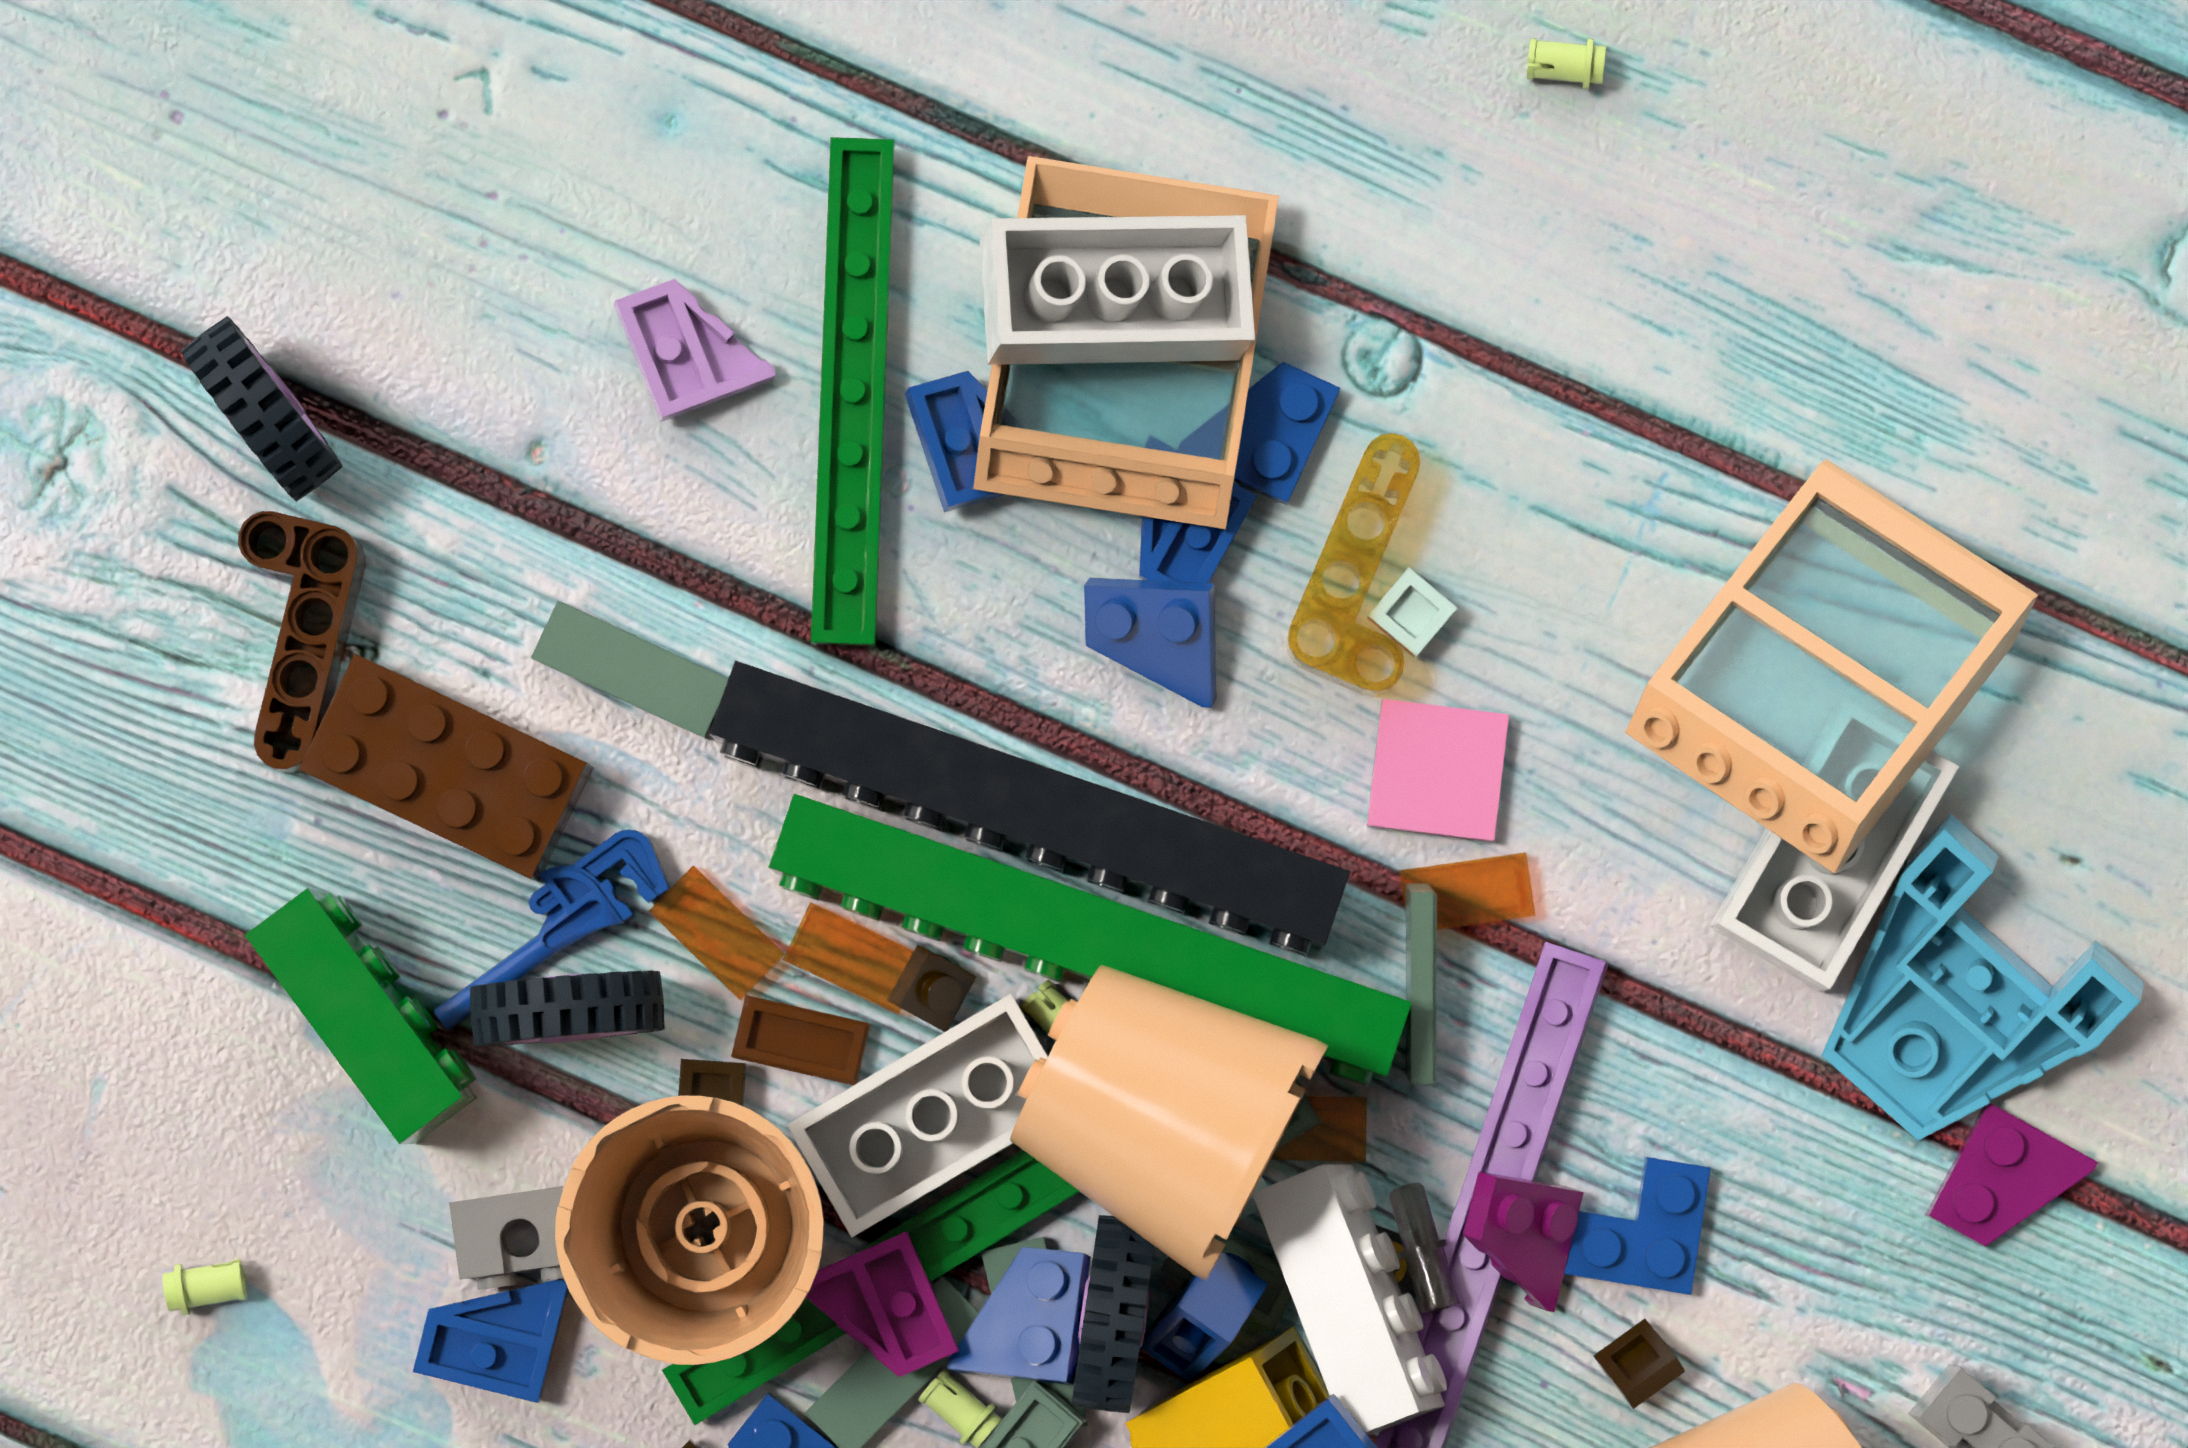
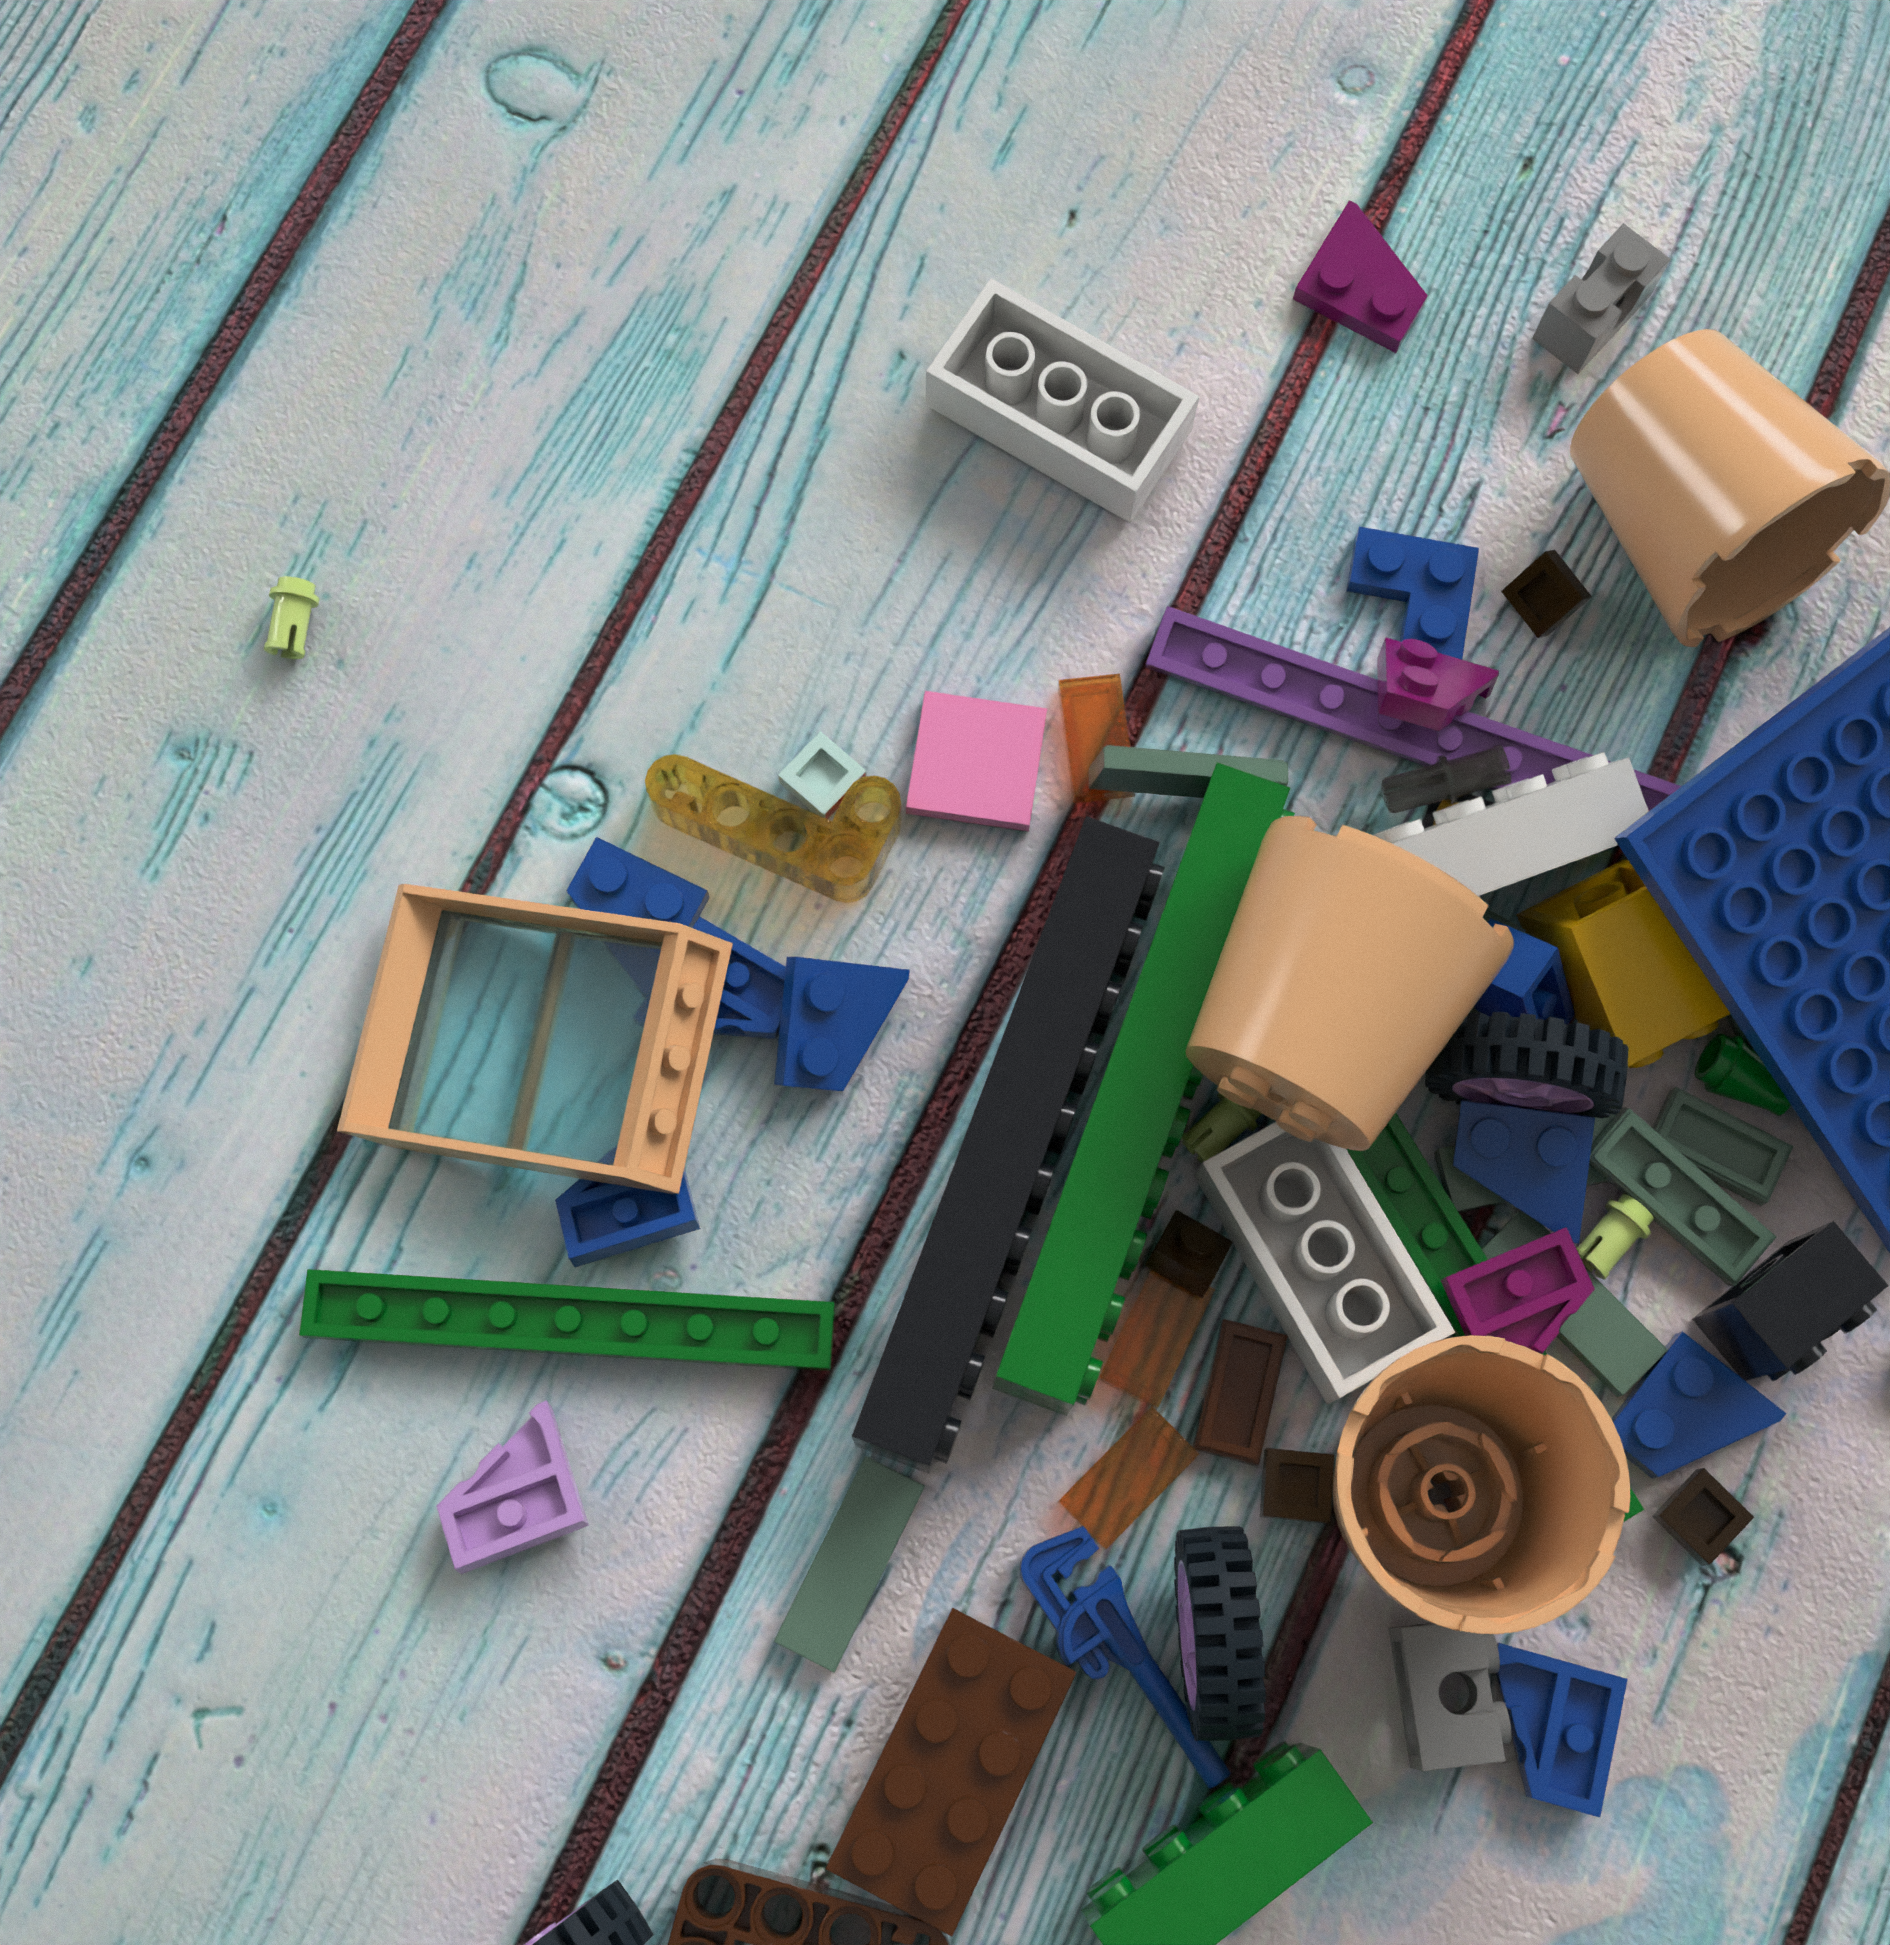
camera: 90 degrees left, 10 degrees down
(1116, 289) = (480, 1034): white brick -> none
(1830, 665) = (893, 387): window -> none
(1949, 1010) = (1216, 308): medium azure wedge -> none

